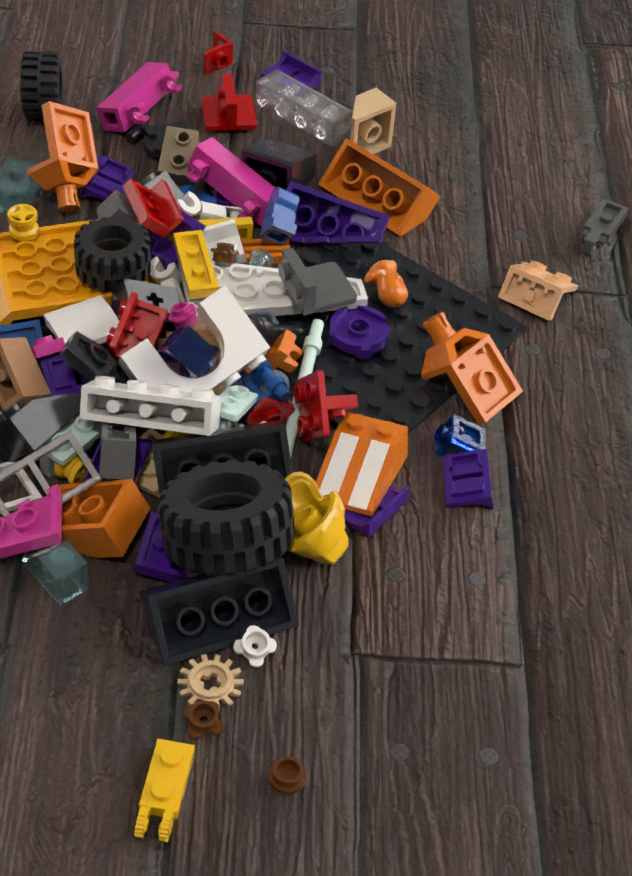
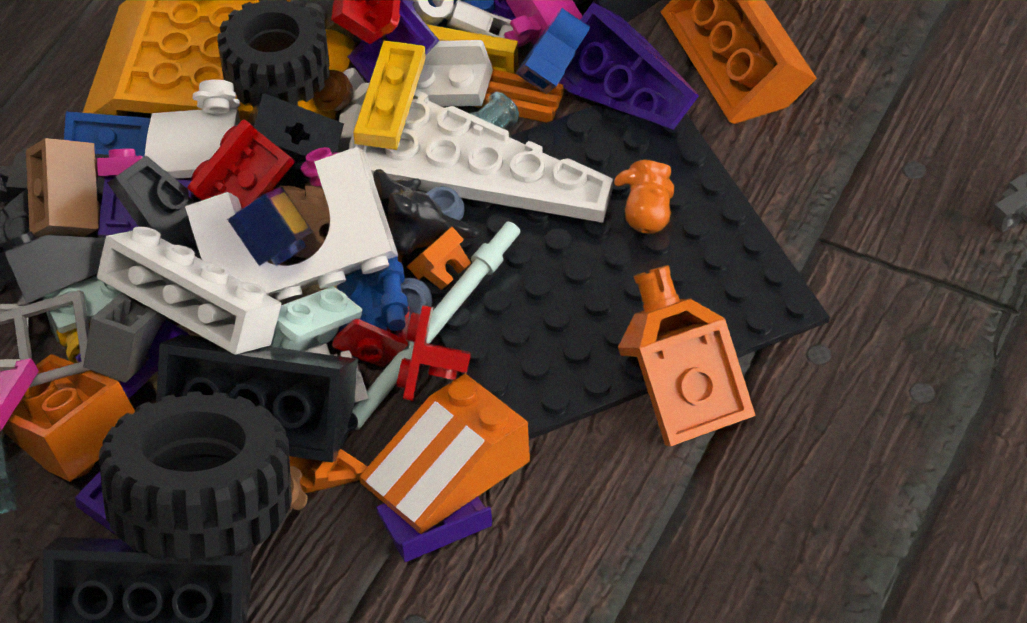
camera: 30 degrees right, 5 degrees up
(89, 289) = (216, 96): none -> white plate
(158, 272) = (335, 94): none -> reddish brown plate
(224, 253) = (444, 87): reddish brown plate -> none
(316, 286) = (532, 173): dark grey bracket -> none
(317, 521) = (330, 525): yellow head -> none
(361, 344) = (560, 275): dark purple plate -> none
(459, 435) = (618, 458): clear blue bracket -> none
(469, 490) = (593, 542): dark purple piece -> none
(535, 289) = (874, 258): light nougat bracket -> none

